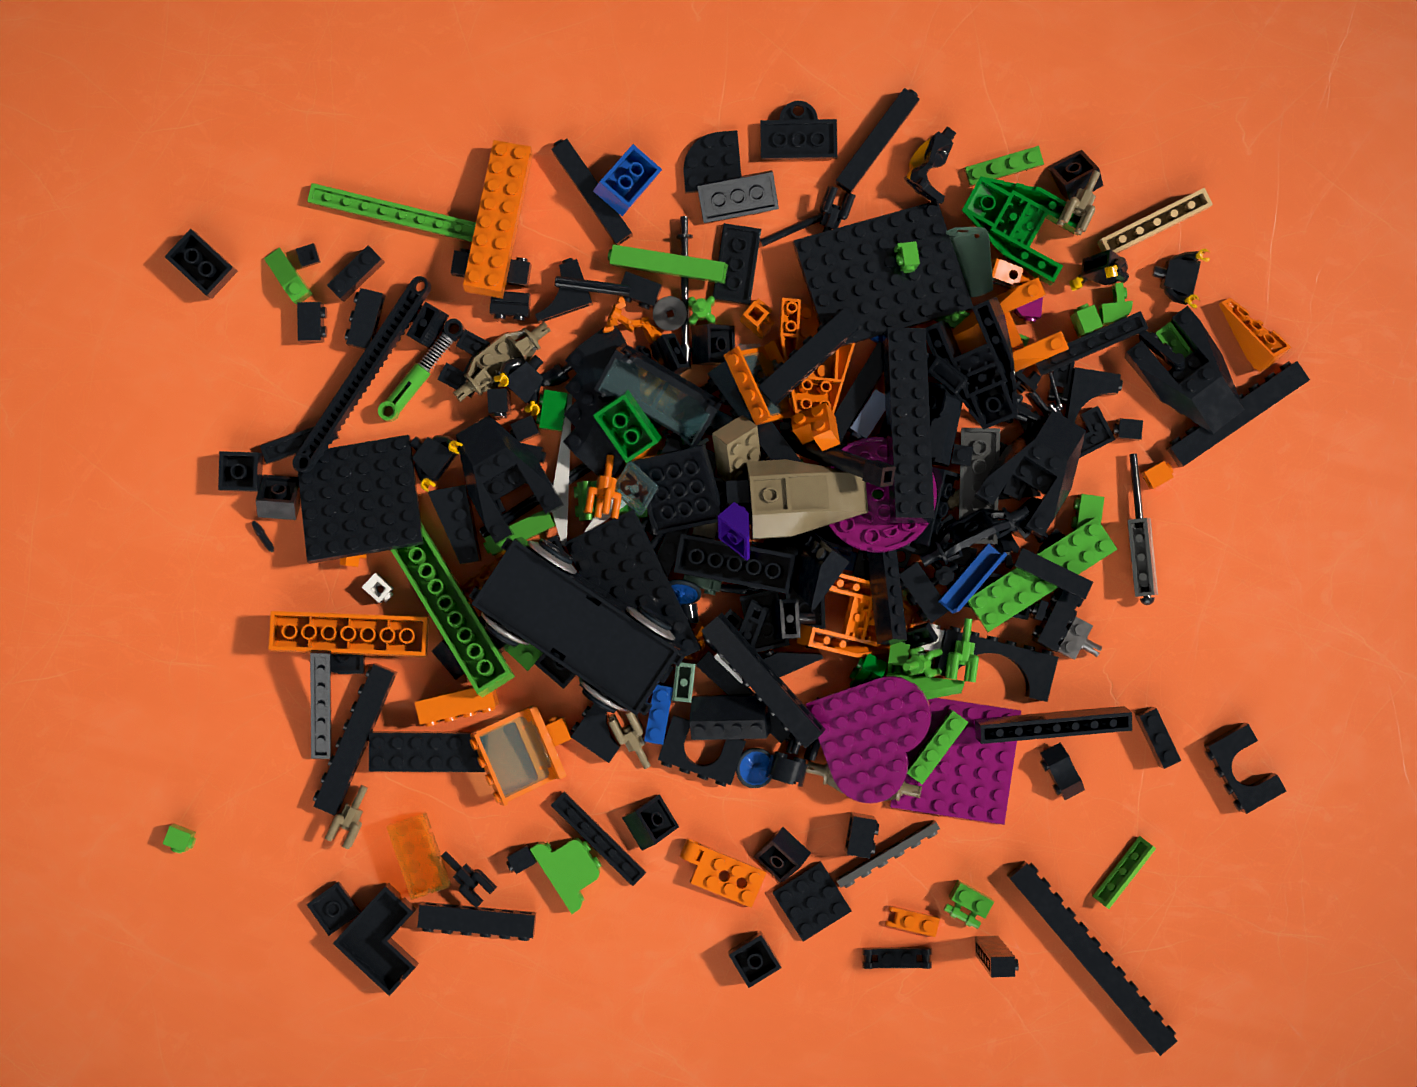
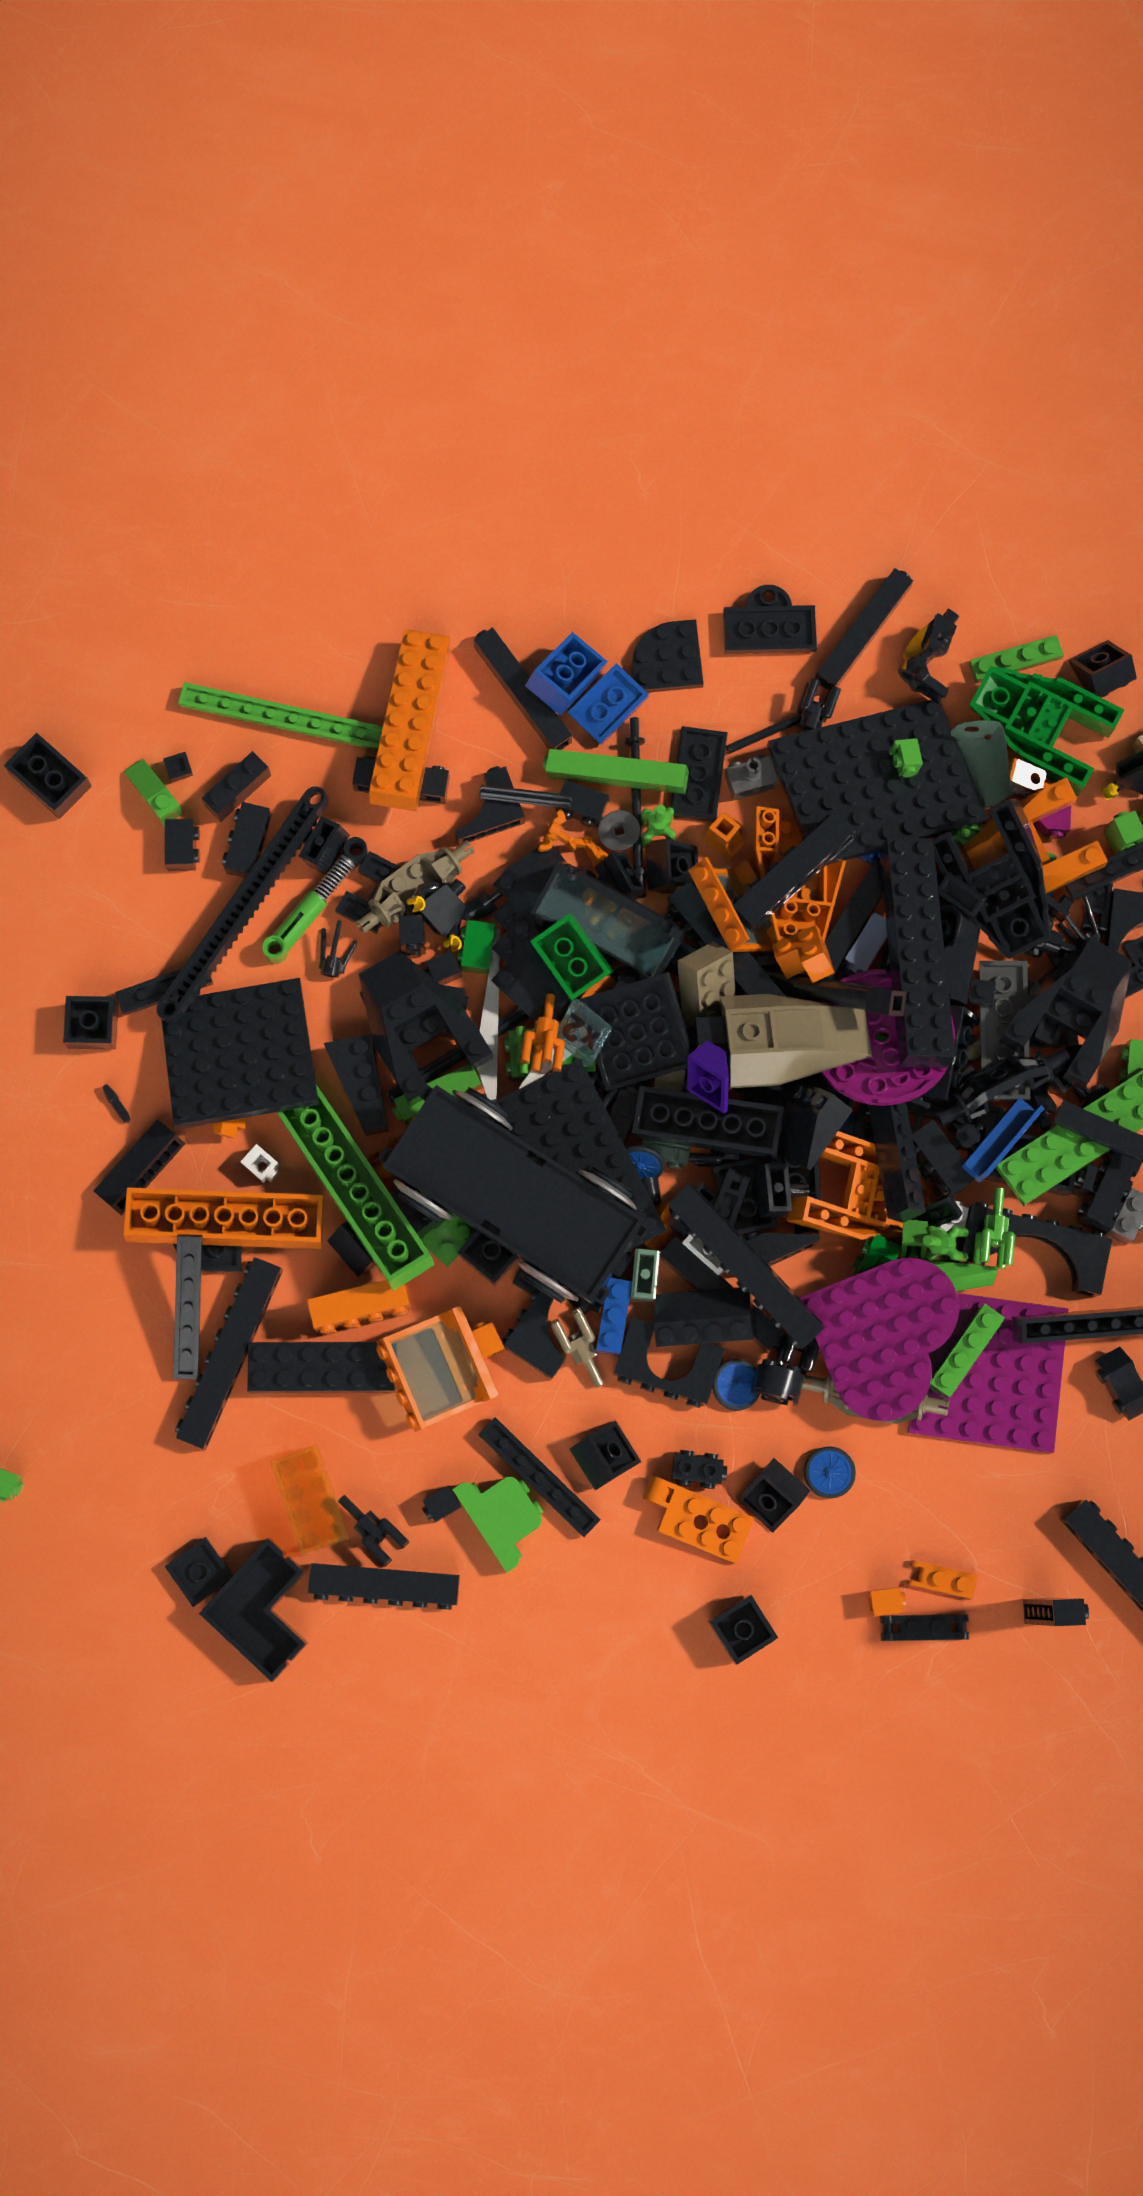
camera: 10 degrees left, 10 degrees down
(278, 497) = (137, 1055): black slope -> none
(282, 588) = (139, 1165): none -> black brick
(348, 820) = (220, 1456): dark tan plant -> none
(433, 457) = (331, 1003): torso -> none
(434, 424) = (331, 965): none -> black plant
(512, 305) = (427, 822): black brick -> none
(663, 204) = (608, 704): none -> blue plate
(727, 835) = (703, 1470): none -> black brick
(737, 196) = (698, 694): black plate -> none
(779, 268) = (751, 777): none -> flat silver brick
(812, 901) = (813, 1555): black plate -> none
(827, 837) = (829, 1472): none -> blue wheel
(861, 835) = (874, 1465): black brick -> none
(868, 938) = (886, 1601): none -> orange brick
(895, 850) = (917, 1487): dark grey plate -> none
(971, 899) = (1017, 1549): bright green brick -> none
(1081, 206) = (1113, 696): dark tan plant -> none

